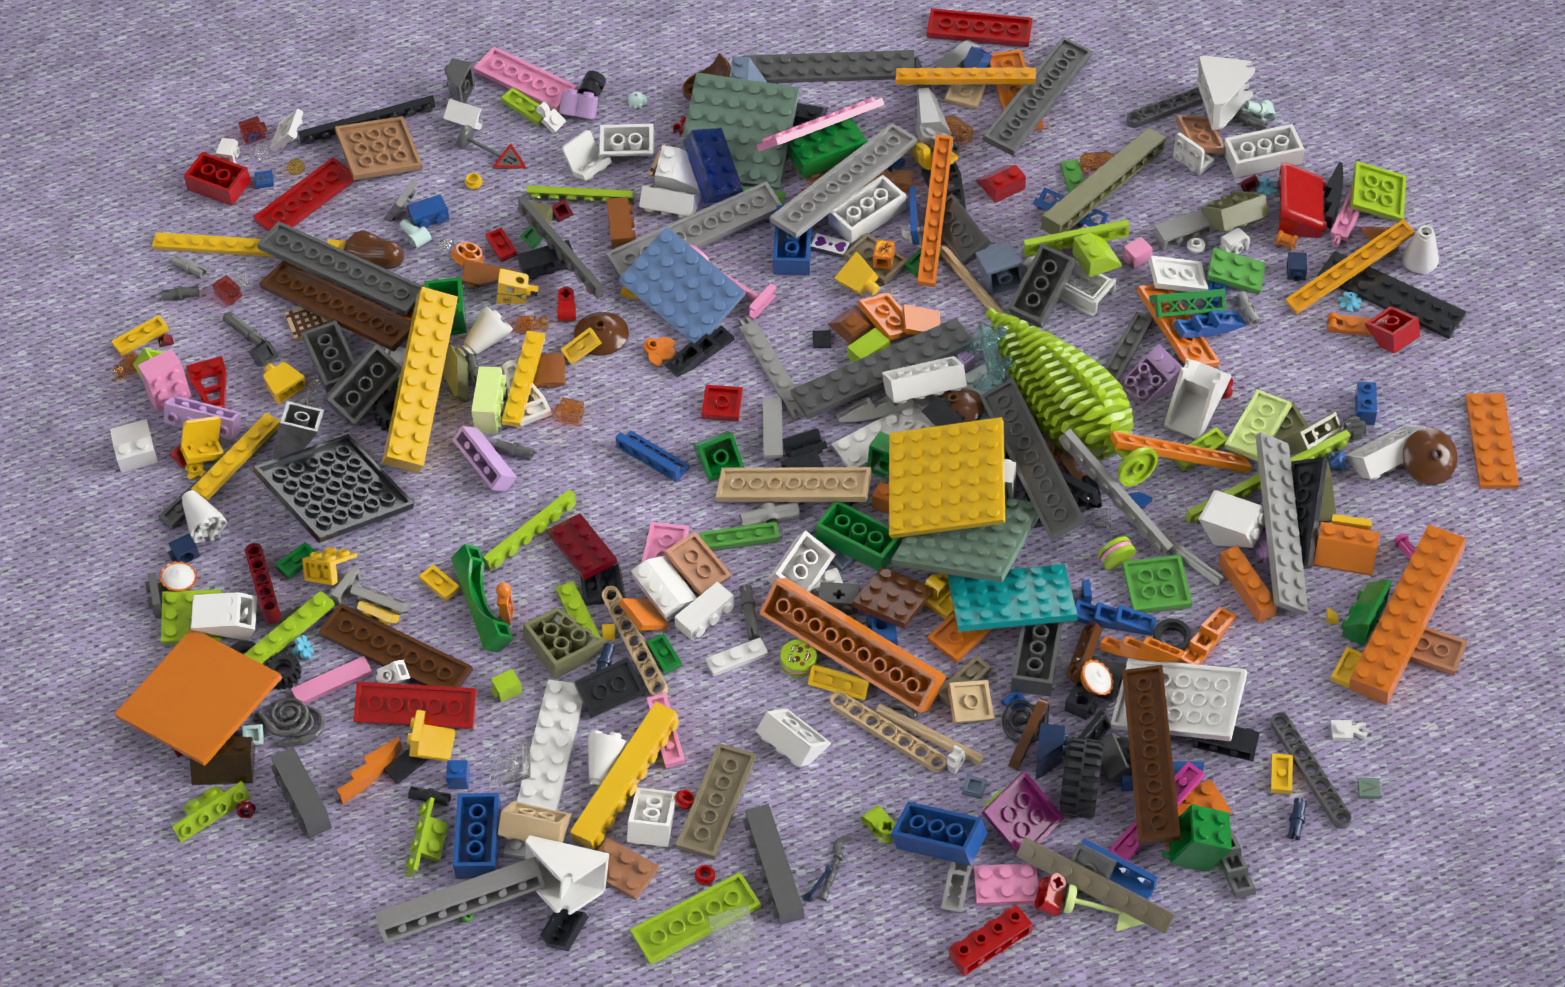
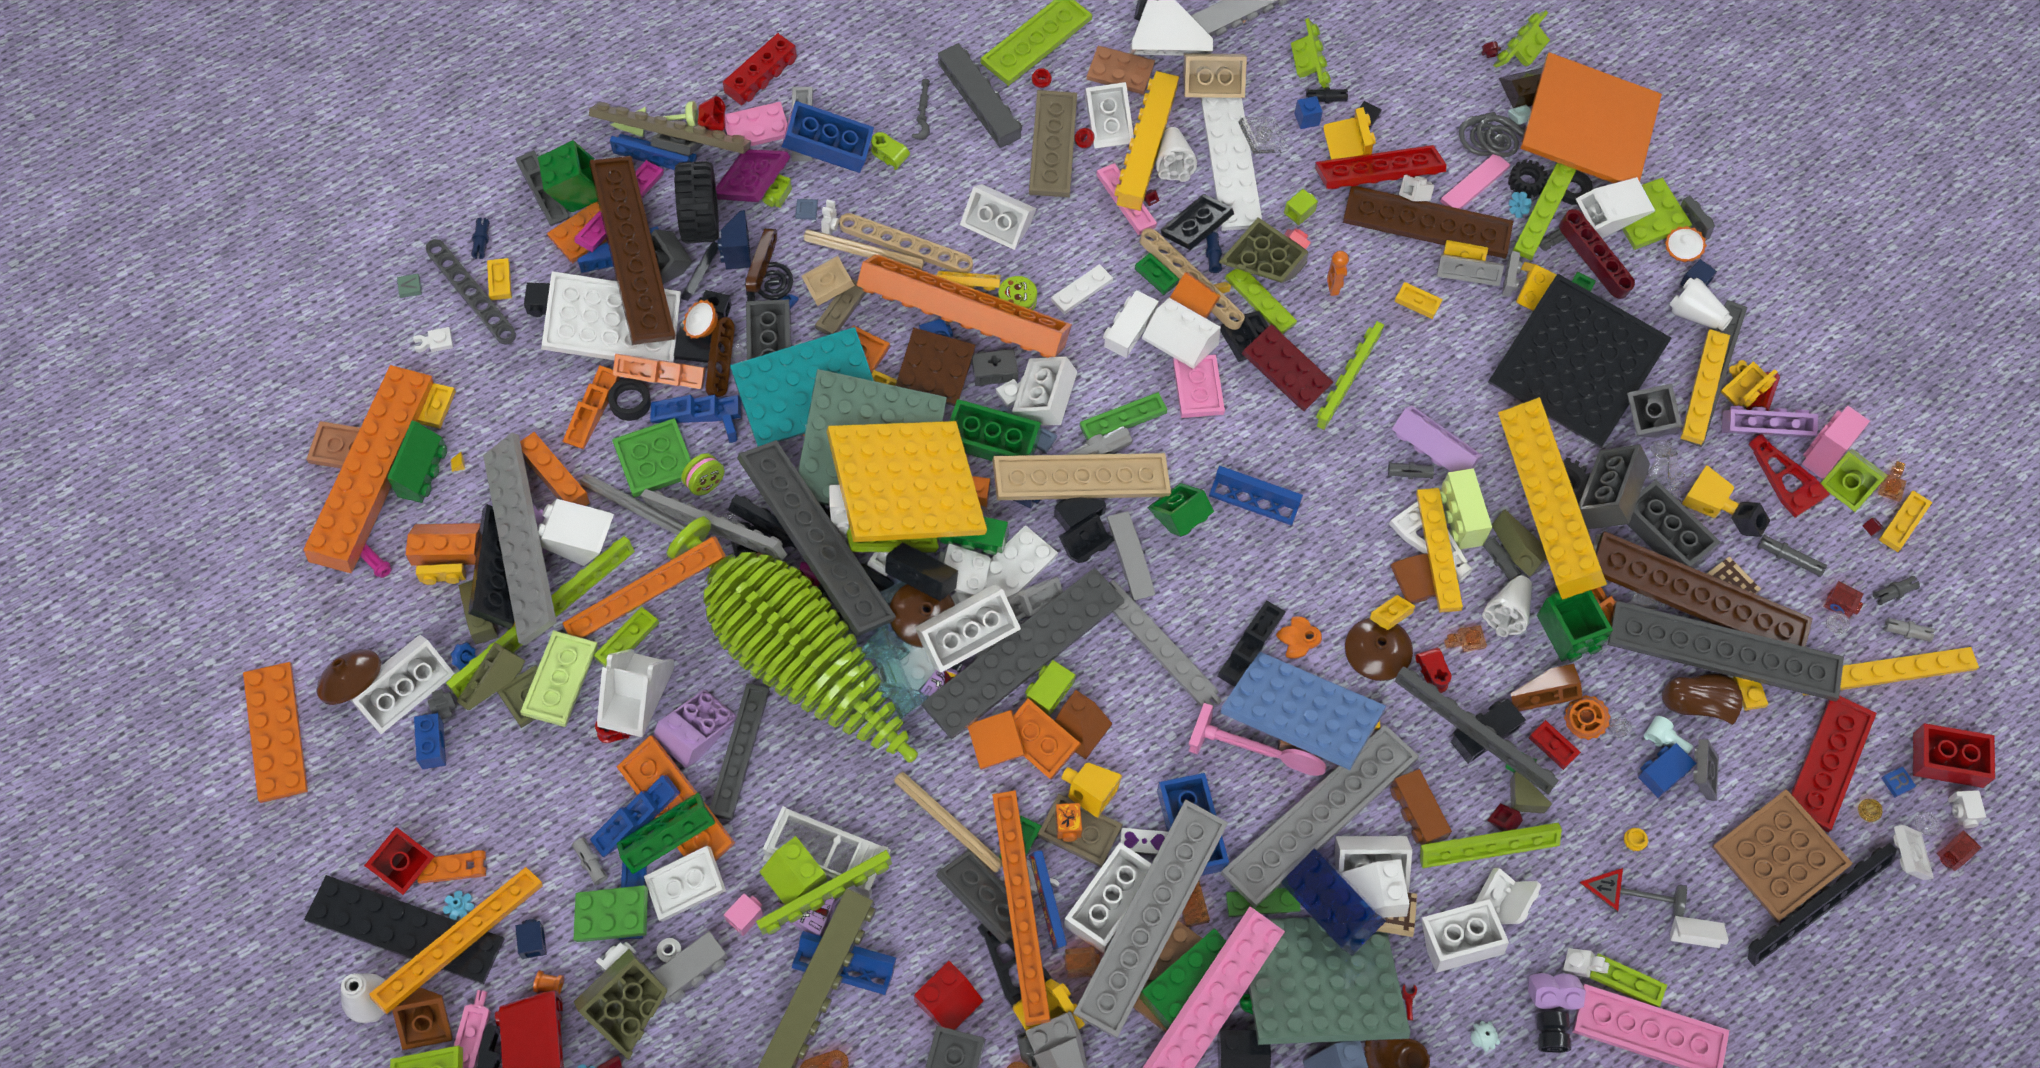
camera: 160 degrees right, 10 degrees up
(133, 445) = (1826, 383): white slope -> none
(300, 793) = (1445, 59): dark grey brick -> none
(368, 773) = (1394, 102): orange slope -> none
(460, 79) = (1733, 985): dark grey slope -> none
(469, 569) = (1386, 305): green arch -> none
(476, 834) = (1267, 64): blue brick -> none
(514, 288) = (1506, 672): yellow torso -> none
(526, 645) = (1298, 237): none -> coral plate
(570, 411) = (1369, 526): clear orange brick -> none
(697, 563) = (1155, 368): nougat plate -> none
(722, 403) = (1200, 579): red plate -> none
(733, 931) = (997, 30): clear plate -> none
(748, 605) = (1088, 342): dark grey pin -> none
(808, 896) = (939, 81): dark blue hinge -> none
(822, 339) = (1112, 697): black tile -> none
(1000, 267) = (917, 842): sand blue slope -> none
(1042, 285) = (853, 808): dark grey brick -> none
(1072, 173) = (849, 1027): bright green plate -> none

